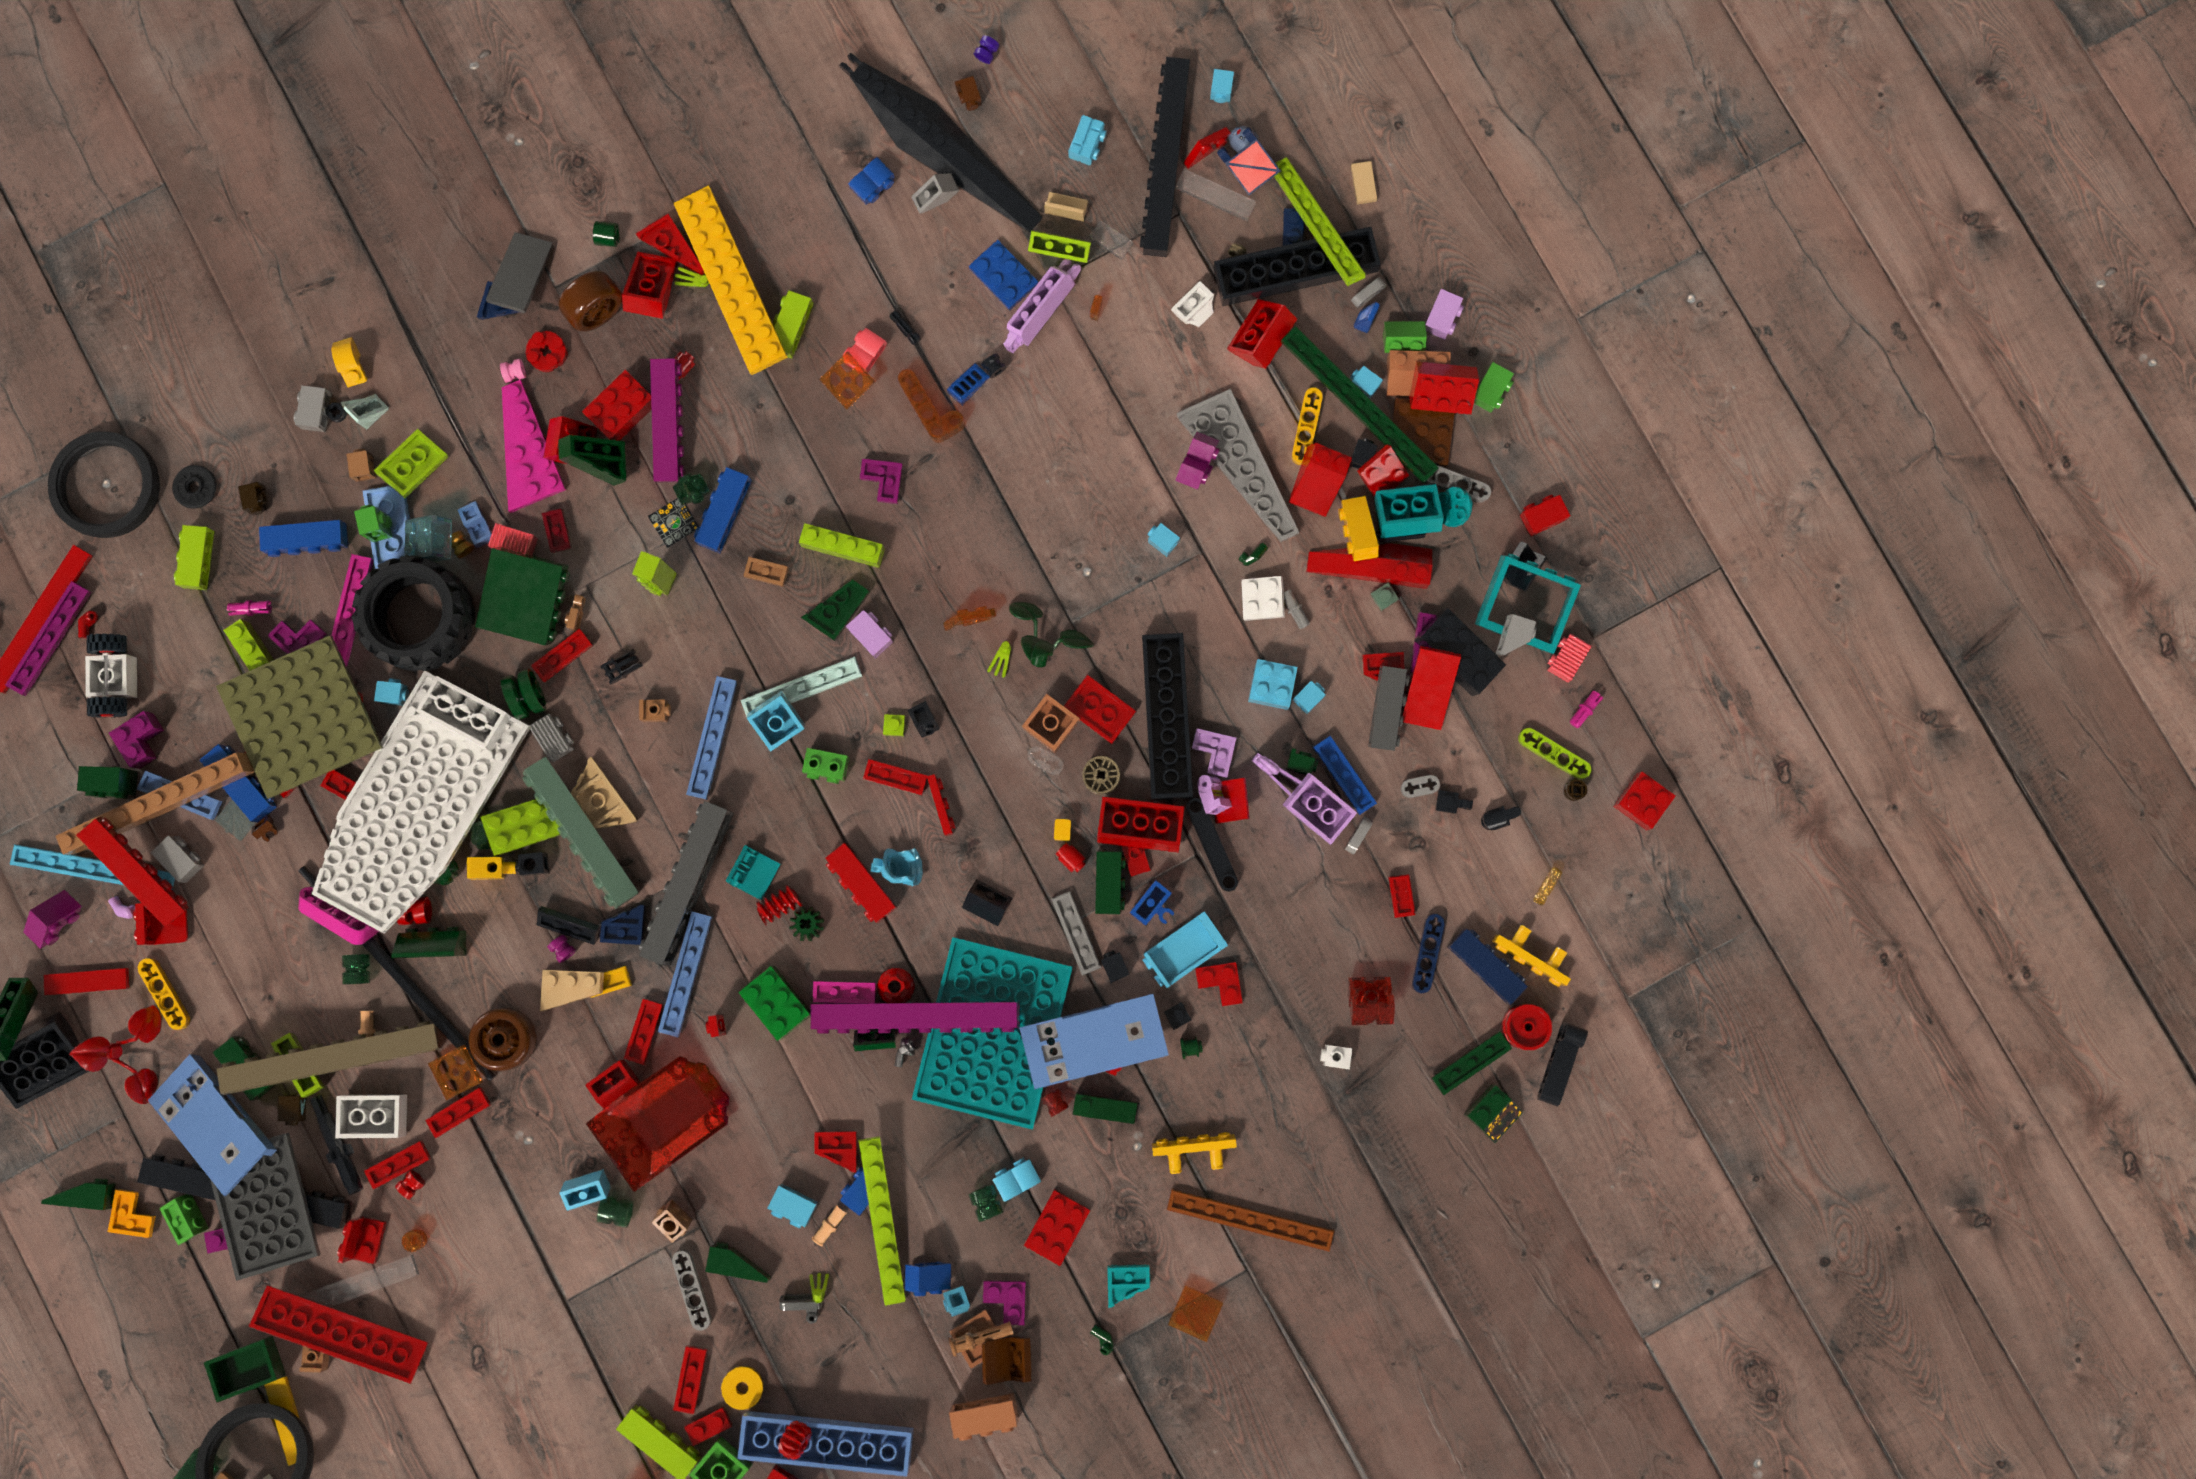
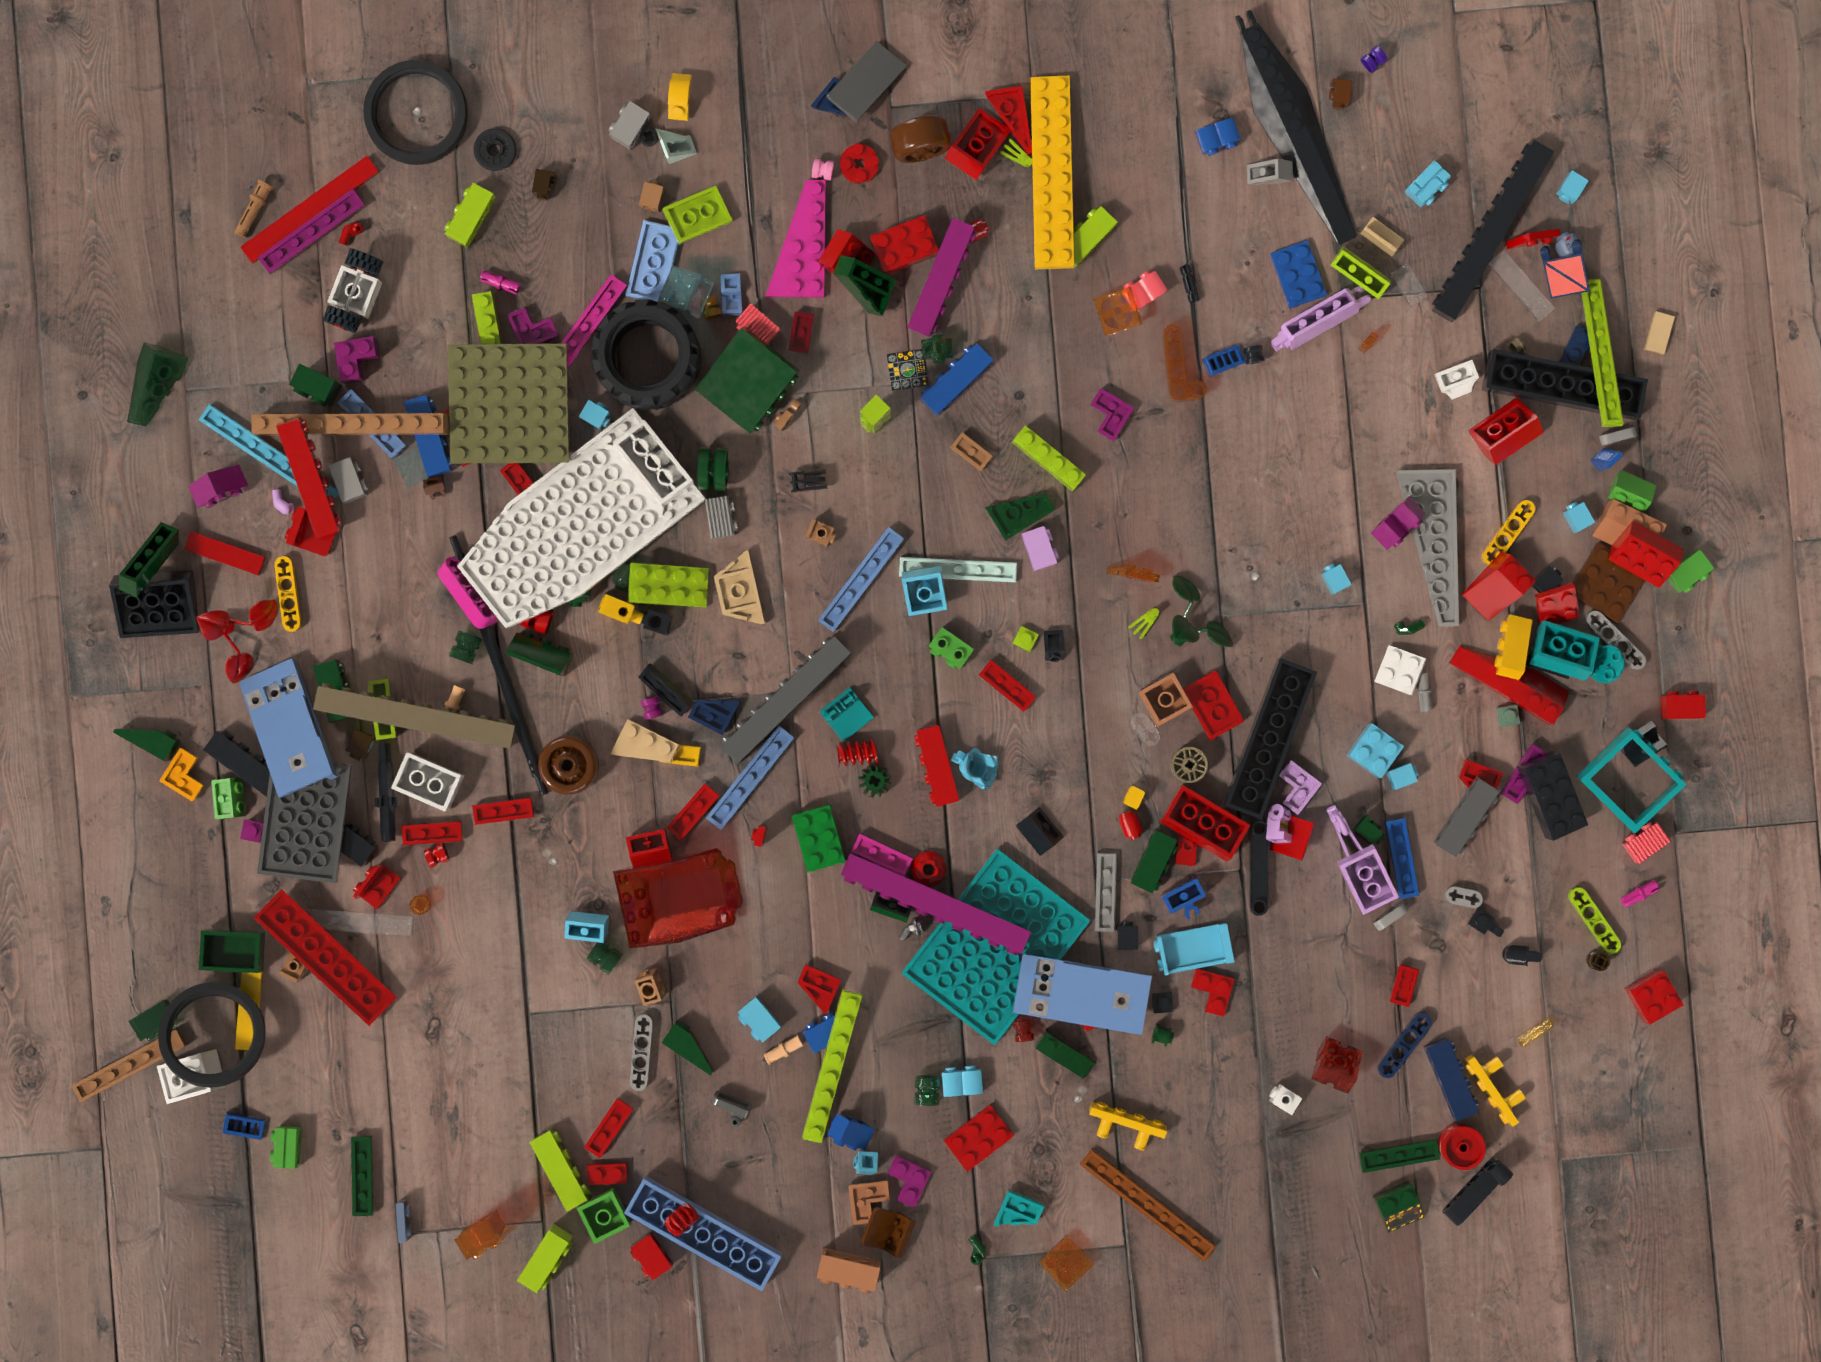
camera: 15 degrees right, 5 degrees up
(303, 537) = (574, 239): blue brick -> none
(373, 523) = (644, 257): bright green brick -> none
(475, 1078) = (515, 767): clear orange piece -> none
(562, 655) = (759, 447): red plate -> none
(580, 833) = (711, 614): sand green brick -> none
(606, 234) = (958, 80): dark green piece -> none
(733, 1396) = (645, 1165): yellow tile -> none
(818, 1294) = (750, 1104): lime piece -> none
(941, 804) = (1037, 728): red plate -> none
(970, 1340) = (864, 1201): medium nougat pin -> none
(1359, 404) = (1564, 535): dark green plate -> none
(1430, 687) = (1513, 816): red tile -> none
(1443, 314) = (1676, 485): lavender brick -> none
(1515, 633) = (1608, 803): light grey slope -> none

